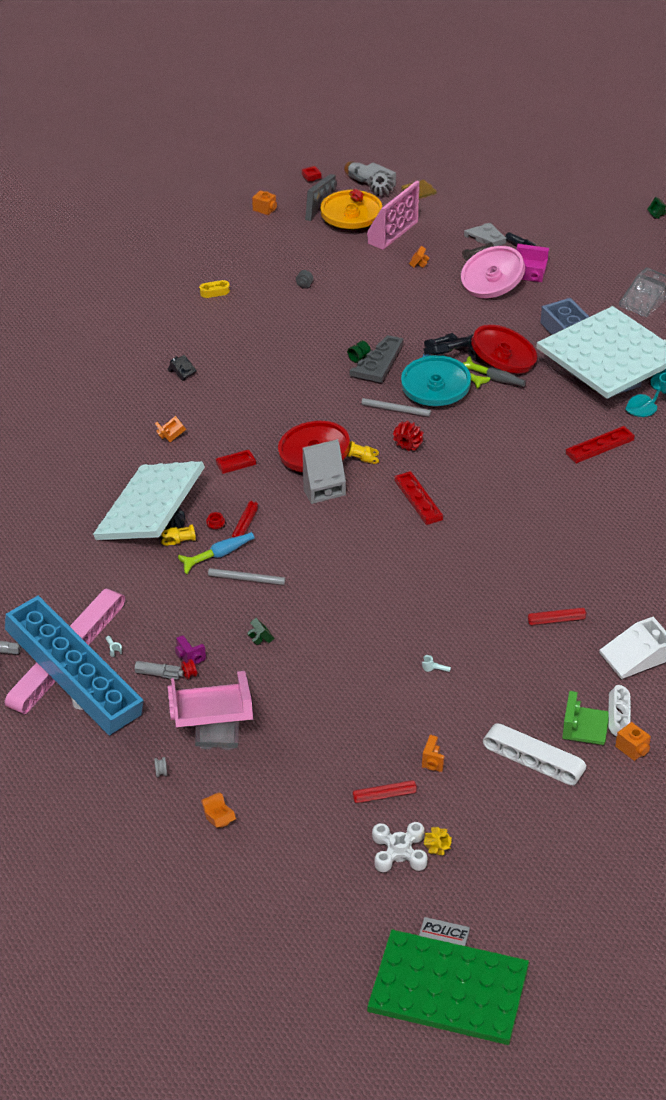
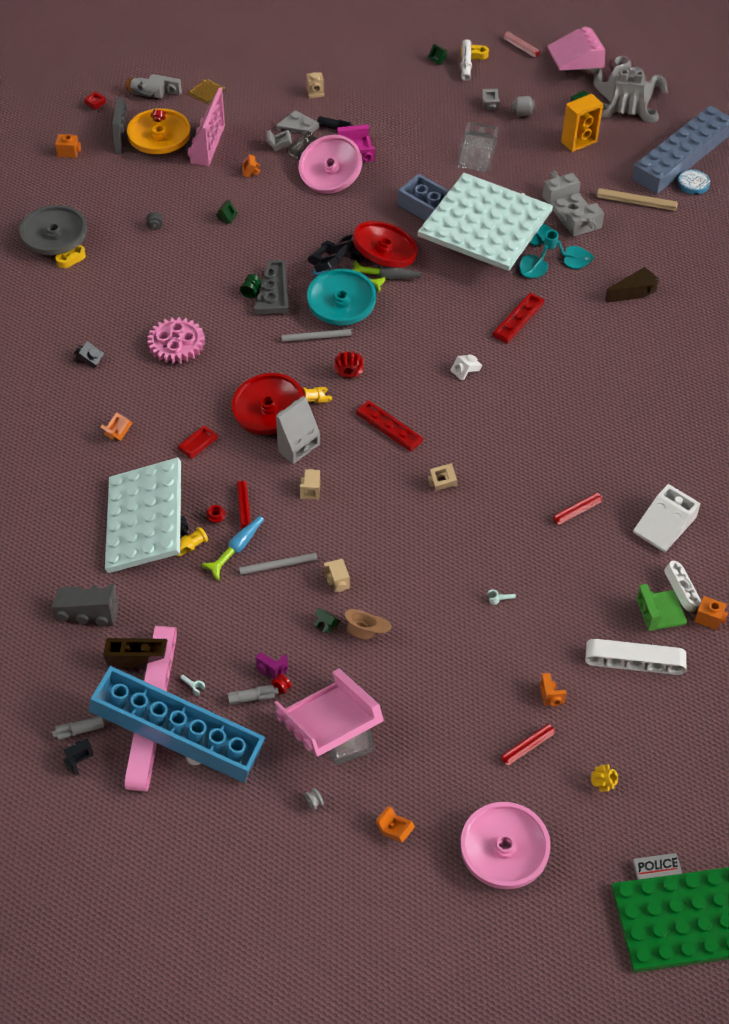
camera: 25 degrees left, 10 degrees up
(60, 555) = (86, 605): none -> dark grey wedge
(72, 600) = (133, 652): none -> dark brown slope
(210, 263) = (53, 229): none -> dark grey dish
(264, 376) = (176, 340): none -> bright pink gear
(291, 645) = (365, 625): none -> medium nougat piece
(292, 599) = (337, 575): none -> tan brick
(307, 860) = (505, 845): none -> bright pink dish
(313, 522) = (310, 485): none -> tan brick
(374, 288) = (226, 212): none -> dark green tile
(384, 178) = (166, 97): light grey gear -> none
(399, 847) = (552, 790): white gear -> none
(440, 551) = (446, 472): none -> tan brick
(458, 244) = (279, 141): none -> light grey bracket
(521, 206) = (315, 85): none -> tan brick
(521, 466) = (465, 364): none -> white bracket

